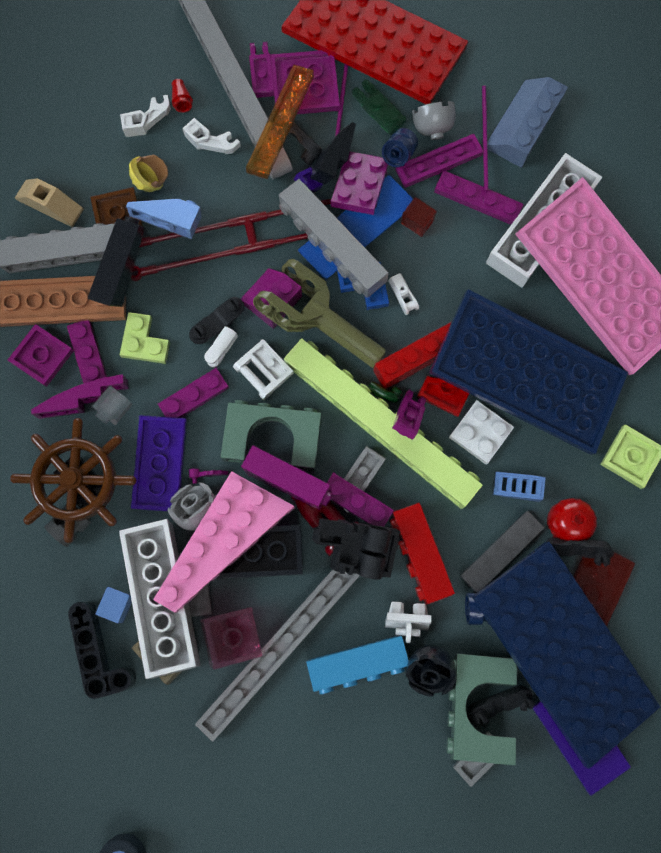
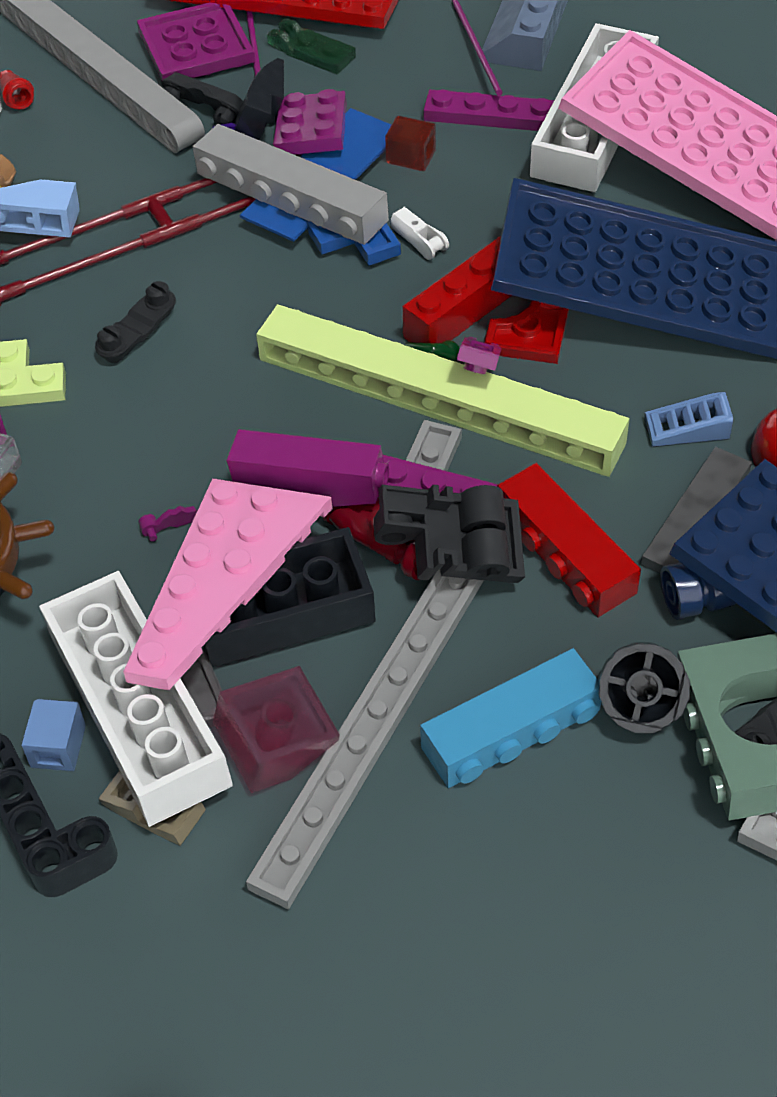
camera: 10 degrees left, 25 degrees down
(158, 462) = (88, 509): dark purple tile -> none
(190, 505) = (150, 557): light grey cylinder -> none
(194, 395) = (120, 426): magenta plate -> none
(208, 142) = (55, 127): white piece -> none
(220, 346) = (150, 354): white bar -> none
(244, 418) = (213, 427): sand green arch -> none
(261, 72) = (129, 40): magenta hinge -> none
(269, 364) = (232, 356): white plate -> none
(277, 283) = (220, 276): magenta slope -> none
(280, 122) = (171, 75): clear orange plate -> none
(317, 315) = (294, 271): olive piece -> none
(400, 147) = (356, 71): dark blue wheel -> none
(408, 624) = (588, 633): white hips -> none
(434, 119) = (395, 33): light grey cylinder -> none
(439, 160) = (416, 81): magenta plate -> none
(481, 432) = (602, 370): white plate -> none

